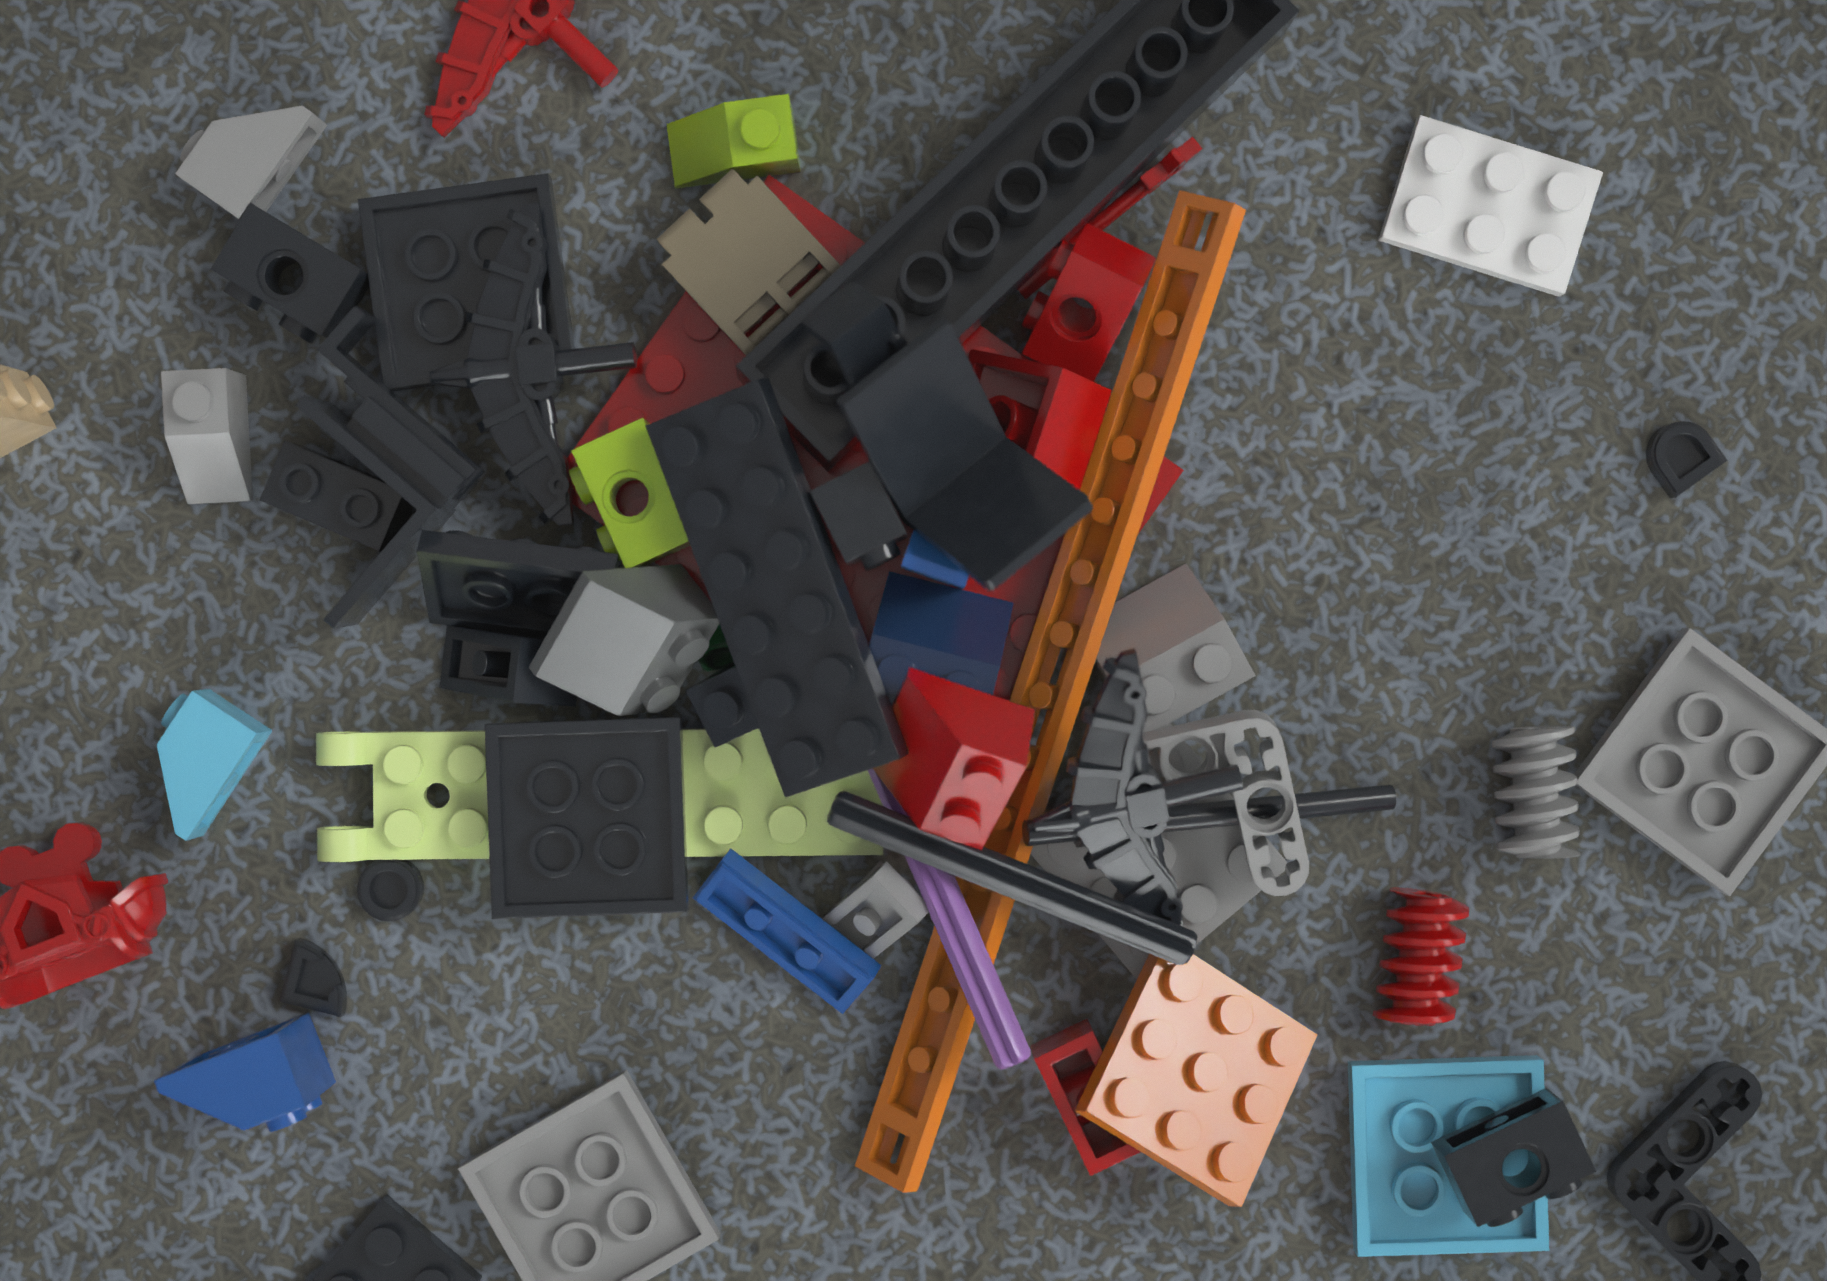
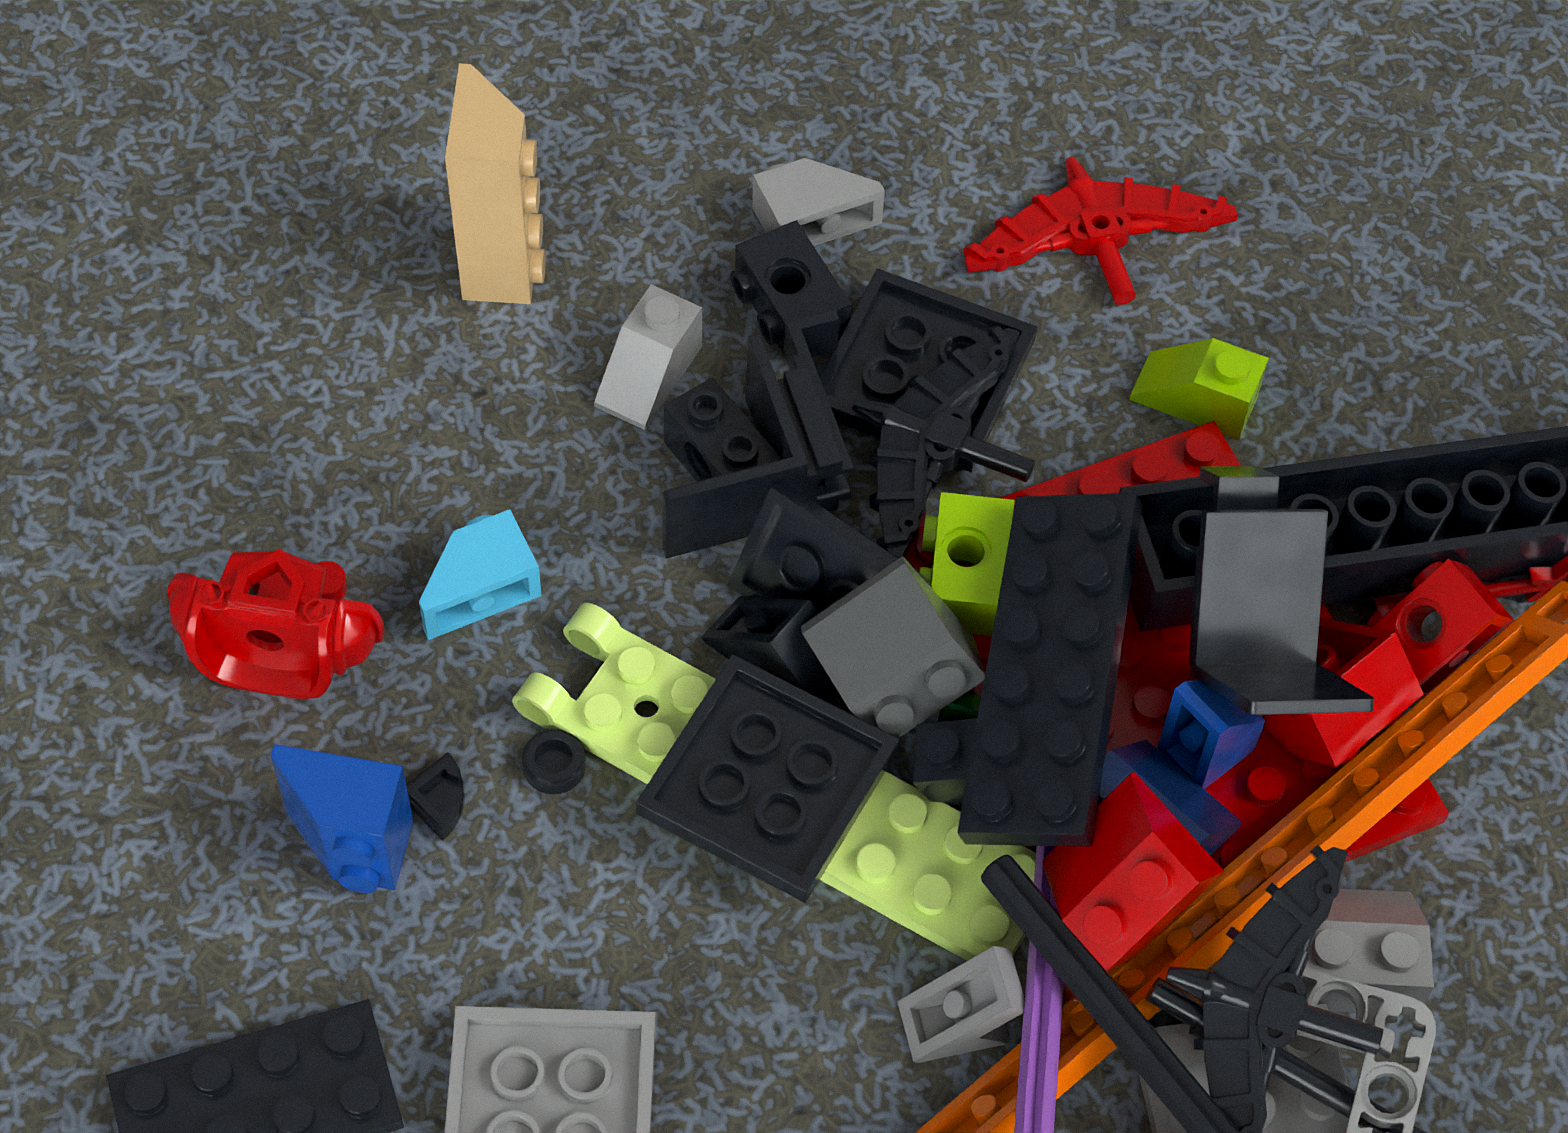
camera: 30 degrees right, 30 degrees down
(744, 258) = (1158, 441): dark tan plate -> none
(787, 931) = (876, 984): blue tile -> none
(860, 517) = (1153, 660): black brick -> none

